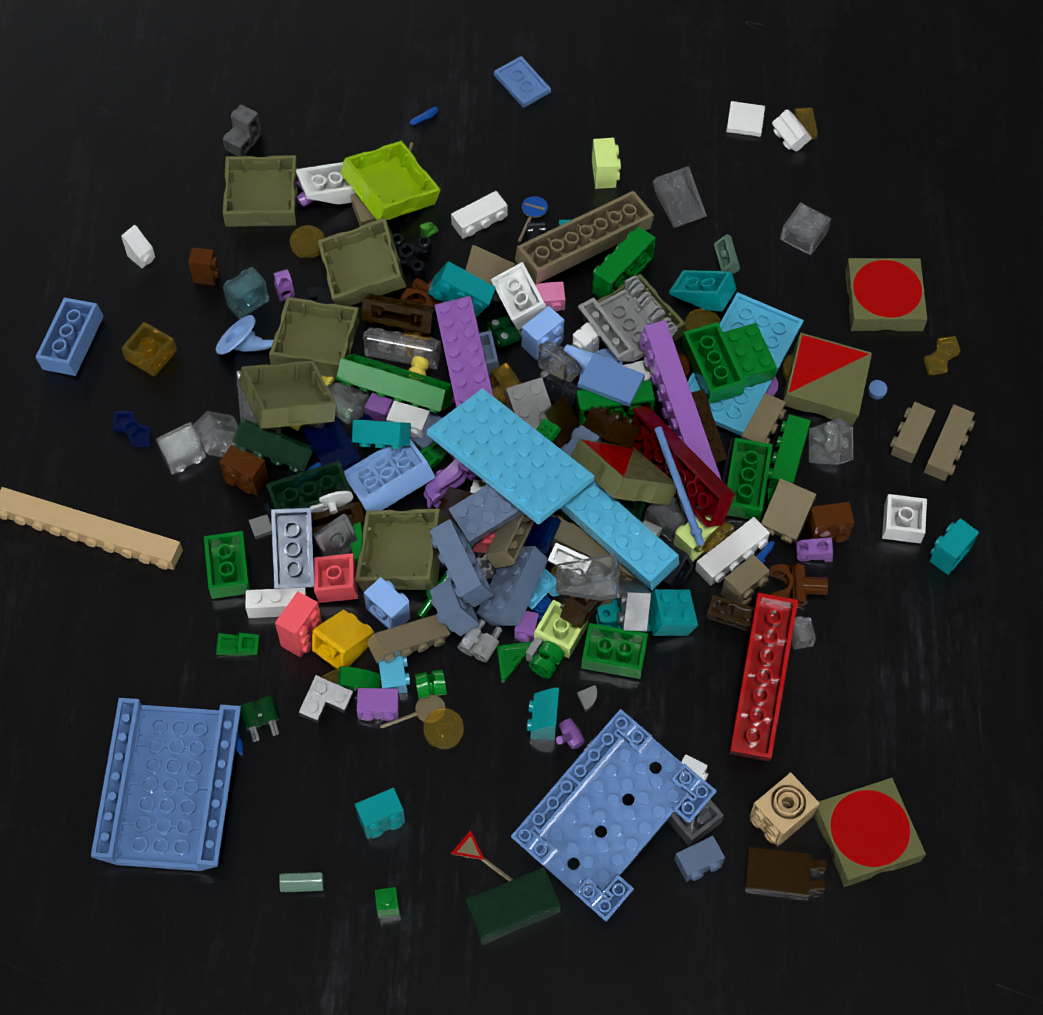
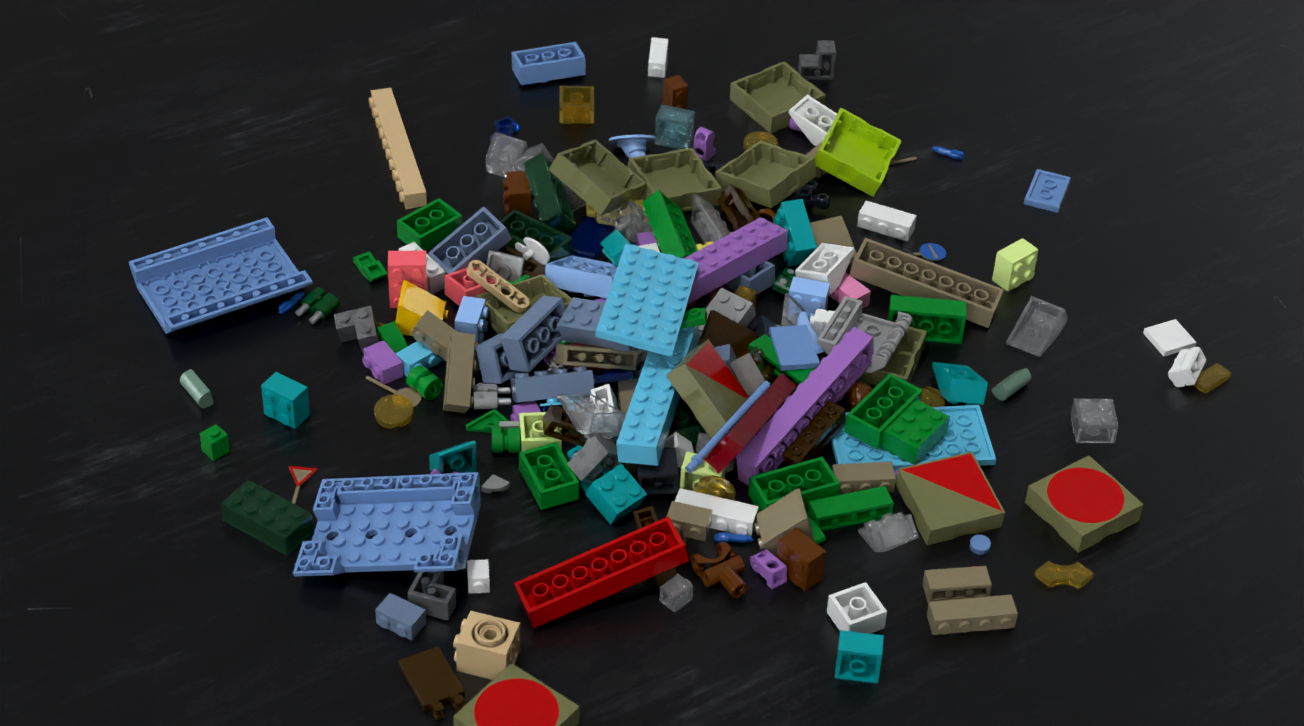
camera: 55 degrees right, 20 degrees down
(364, 559) = (499, 284): none -> tan beam
(428, 229) = (841, 200): bright green tile -> none
(450, 650) = (459, 372): none -> dark tan brick

